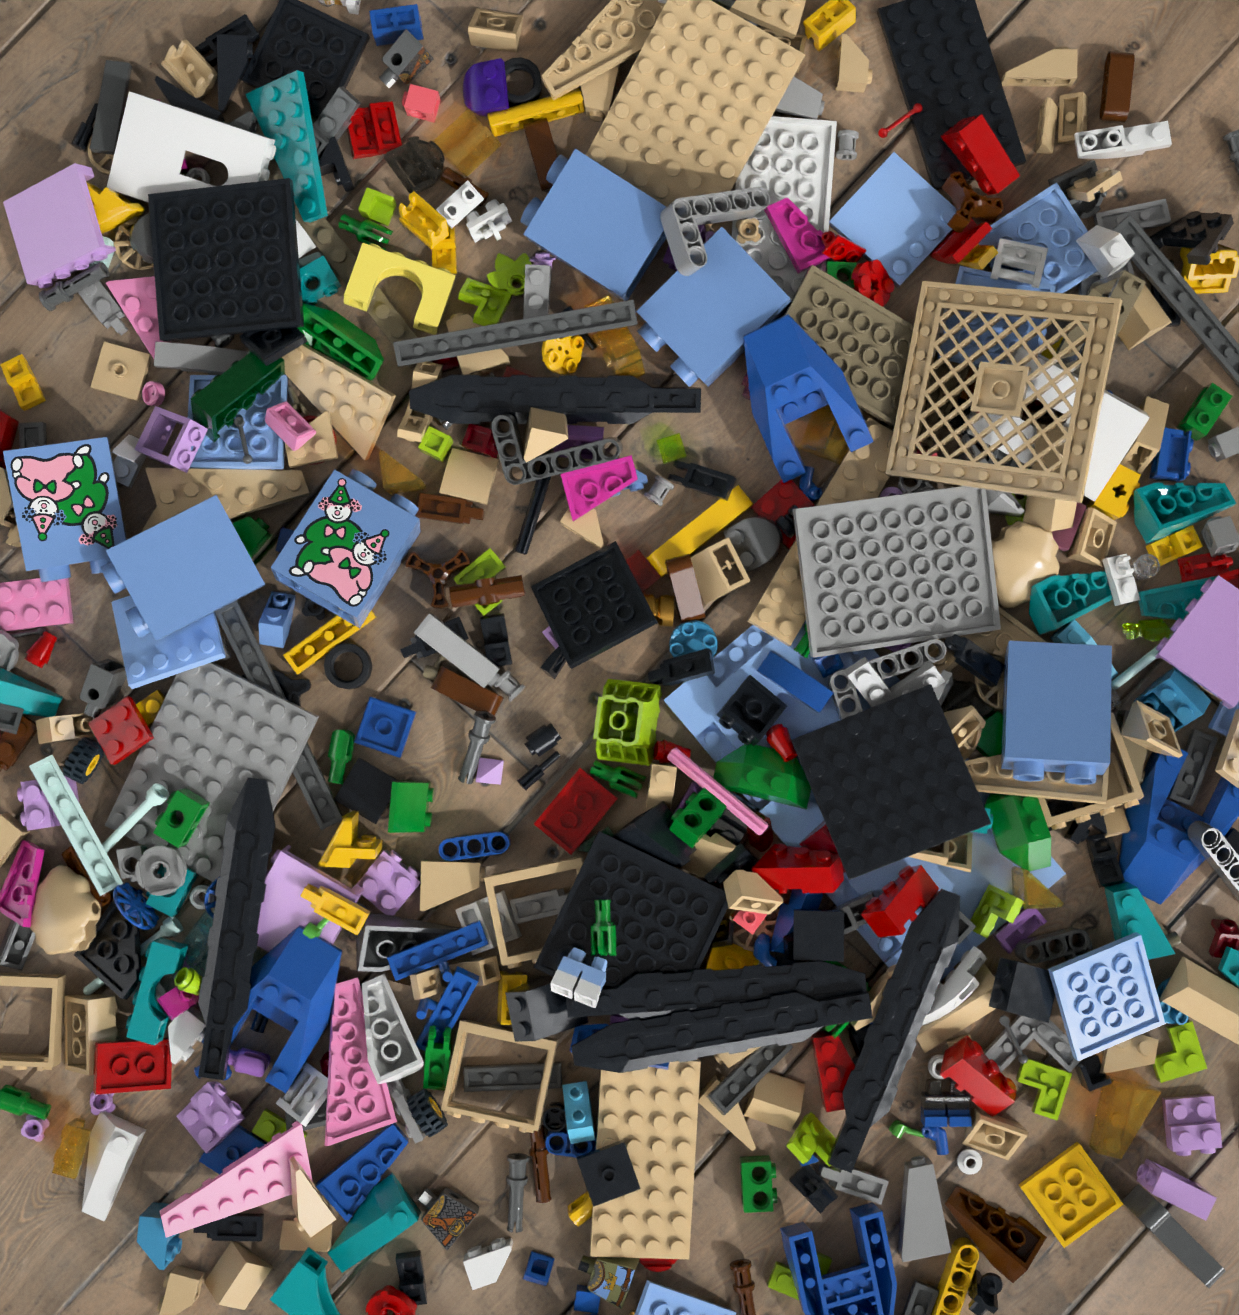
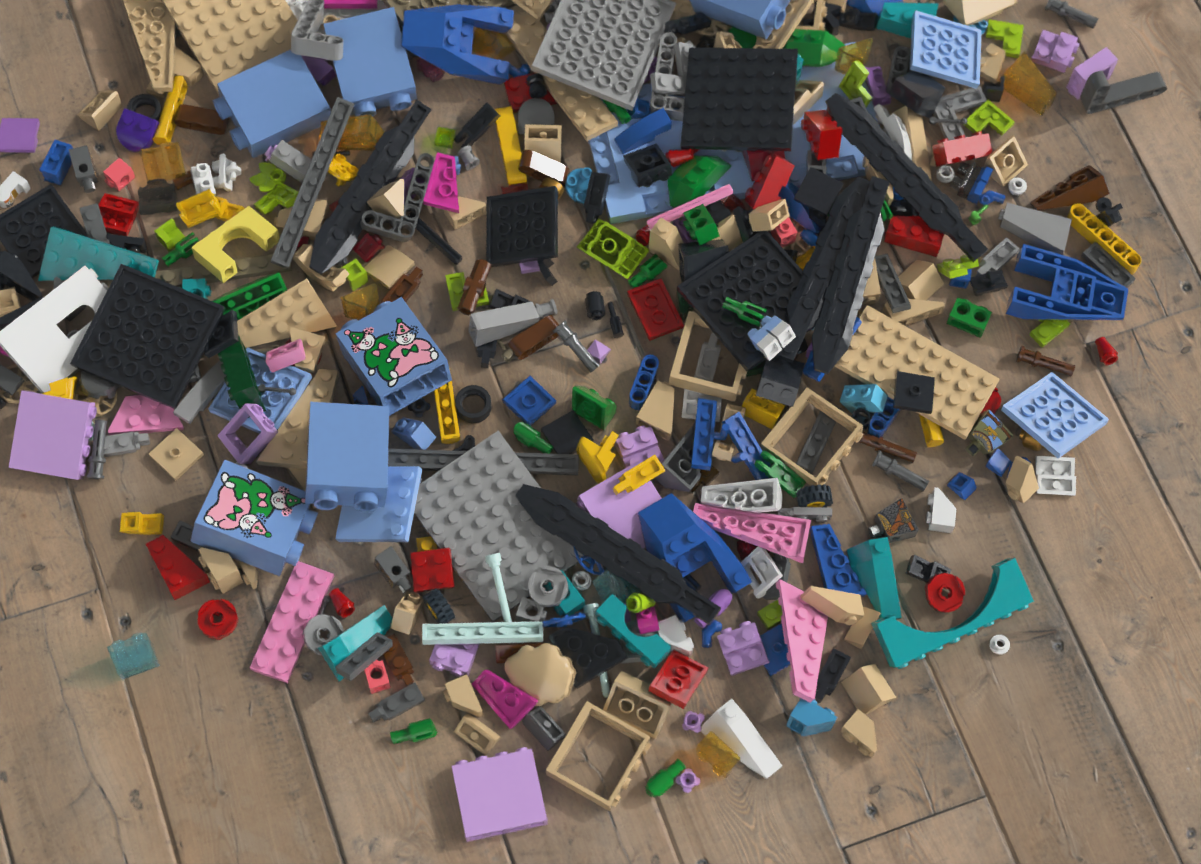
camera: 65 degrees left, 20 degrees down
(153, 393) = (205, 439): bright pink tile -> none
(192, 808) = (516, 542): green brick -> none
(313, 931) = (647, 501): bright green hand -> none
(439, 574) = (445, 316): reddish brown piece -> none
(1070, 1194) = (1068, 138): yellow plate -> none

